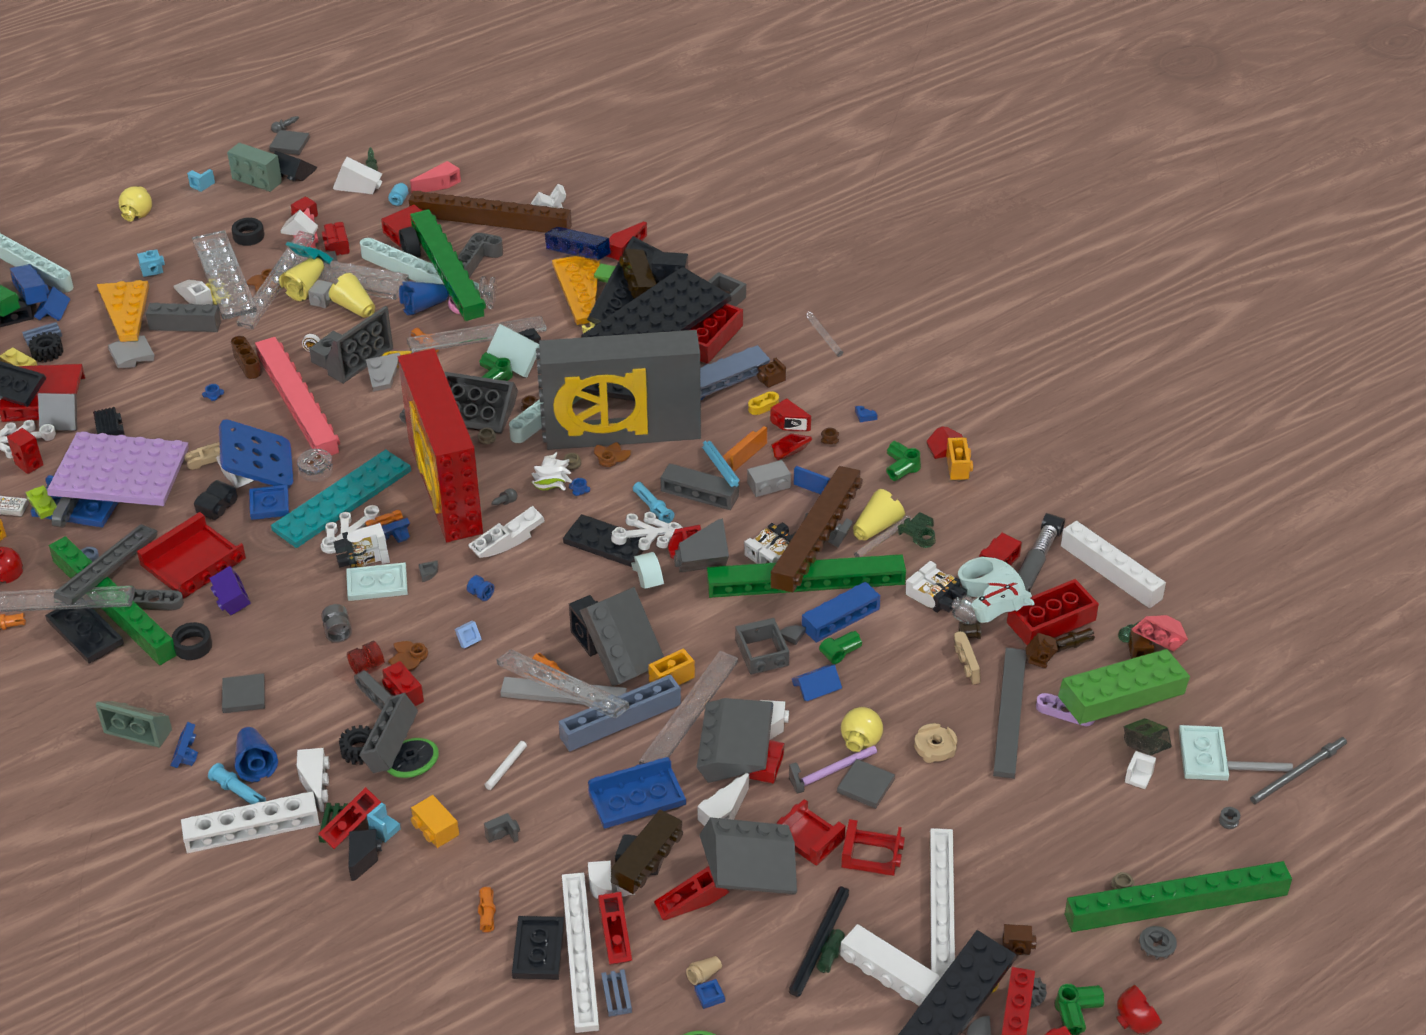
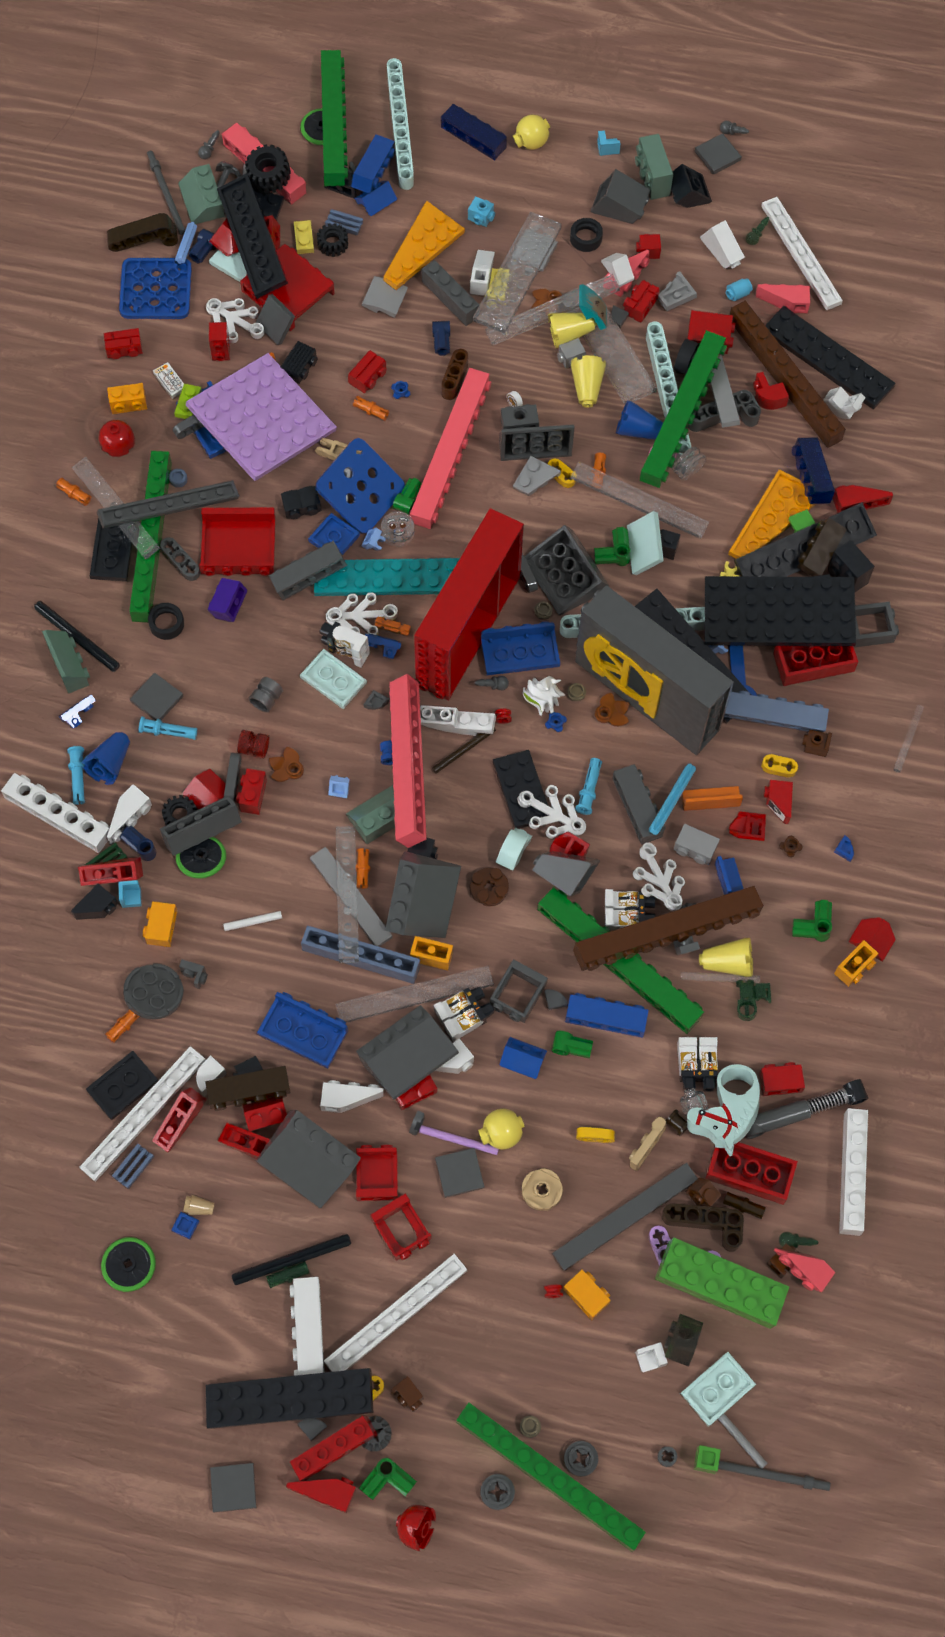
camera: 45 degrees right, 25 degrees up
(86, 228) = (474, 131): none -> clear blue brick
(150, 702) = (78, 637): none -> black axle
(173, 397) = (367, 371): none -> red brick
(202, 416) = (371, 408): none -> orange pin
(206, 343) = (441, 336): none -> dark blue piece
(248, 198) = (621, 198): none -> dark grey slope
(270, 707) = (158, 728): none -> medium azure pin
(276, 528) = (308, 570): none -> dark grey brick
(298, 441) = (405, 500): none -> green piece
(303, 482) = (371, 539): none -> light blue tile
(348, 786) = (138, 842): none -> dark blue piece
(356, 221) = (676, 293): none -> light grey wing
(360, 714) = (205, 789): none -> red slope
(416, 153) = (801, 253): none -> white plate
(471, 244) = (724, 397): none -> light grey tile
(484, 867) = (153, 991): none -> dark grey tile
(496, 226) = (768, 396): none -> red brick
(502, 463) = (520, 648): none -> blue bracket
(508, 190) = (829, 357): none -> black plate
(508, 570) = (407, 761): none -> coral brick
(521, 625) = (374, 816): none -> sand green slope
(532, 552) = (459, 752): none -> dark brown bar
(539, 506) = (503, 716): none -> red bush
(666, 602) = (483, 895): none -> reddish brown plate
(678, 863) = (264, 1113): none -> red brick
(740, 683) = (462, 1012): none -> hips
(767, 507) = (671, 899): none -> white plant
(927, 681) = (595, 1135): none -> yellow beam
(1026, 791) = (553, 1291): none -> red bush
(1050, 773) = (587, 1294): none -> light orange brick
(1063, 663) = (703, 1223): none -> dark brown beam
(1174, 862) = (590, 1462): none -> dark grey gear
(1256, 792) = (707, 1459): none -> bright green panel

